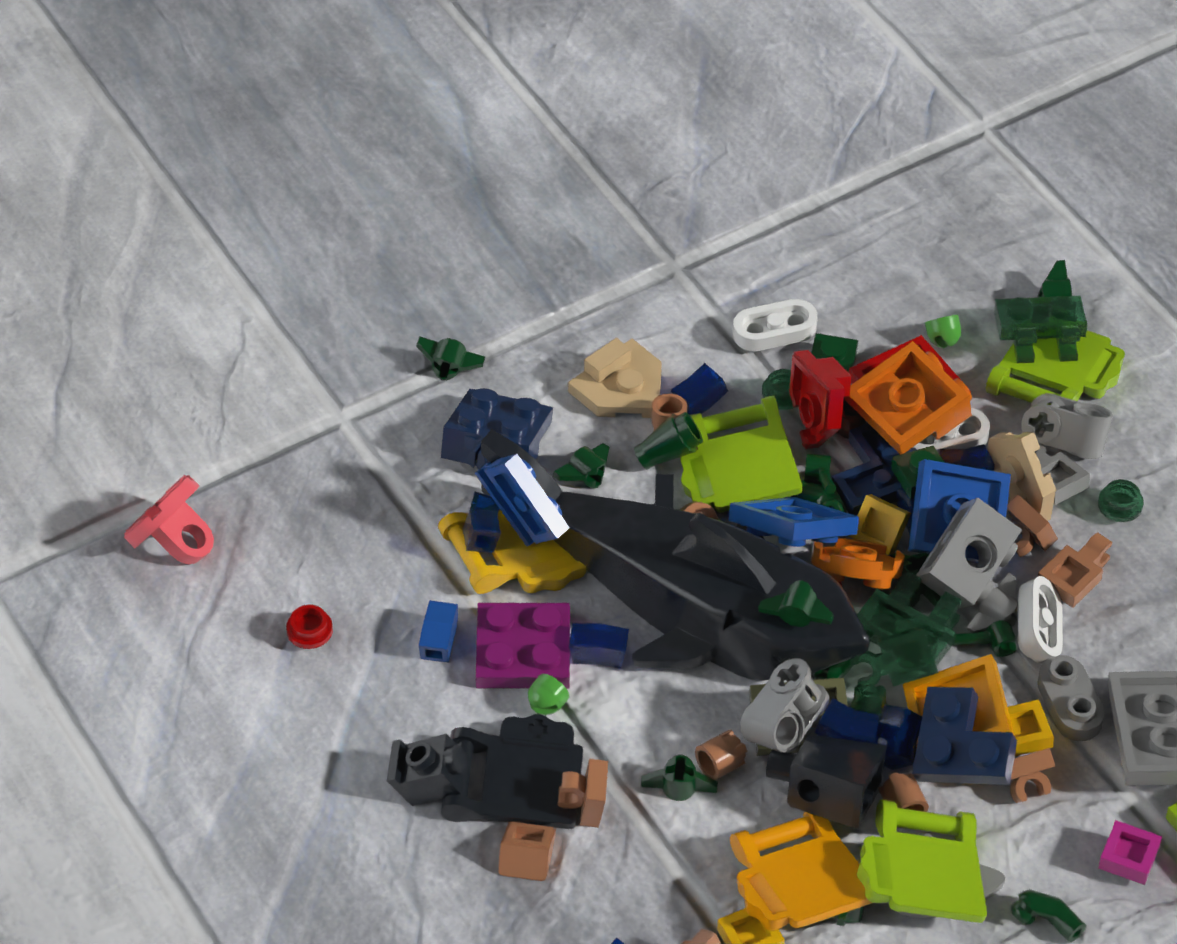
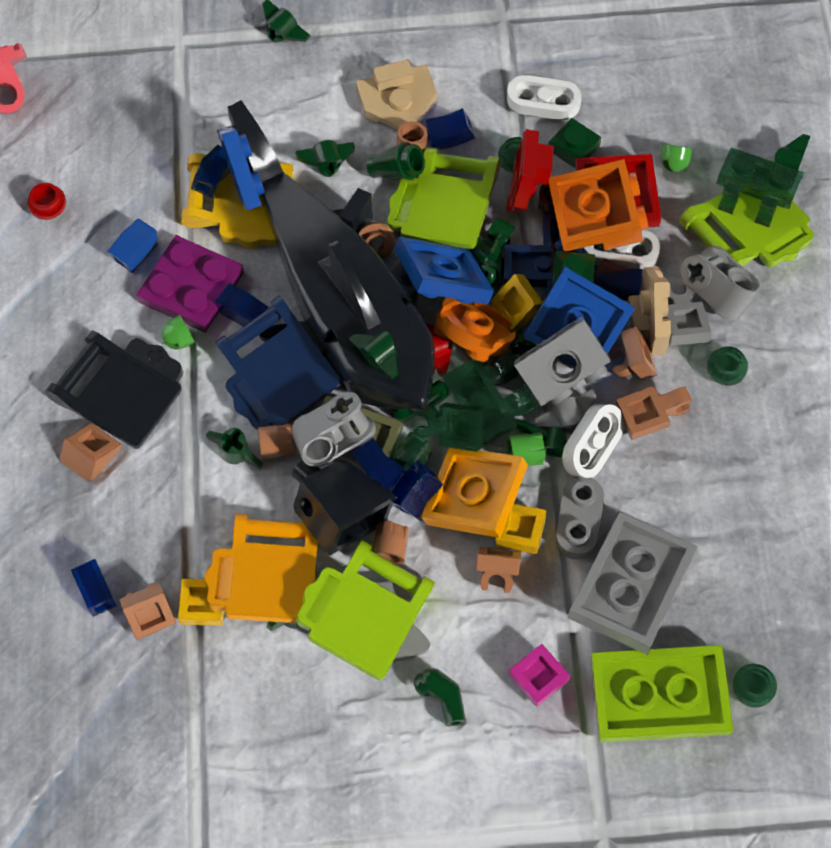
camera: 30 degrees right, 15 degrees up
(427, 769) = (48, 354): black brick -> none
(483, 409) = (278, 98): dark blue plate -> none
(586, 792) = (154, 428): nougat tile -> none
(685, 690) = (280, 375): none -> dark blue piece
(951, 749) = (442, 520): dark blue plate -> none
(978, 648) = (528, 446): none -> bright green hose

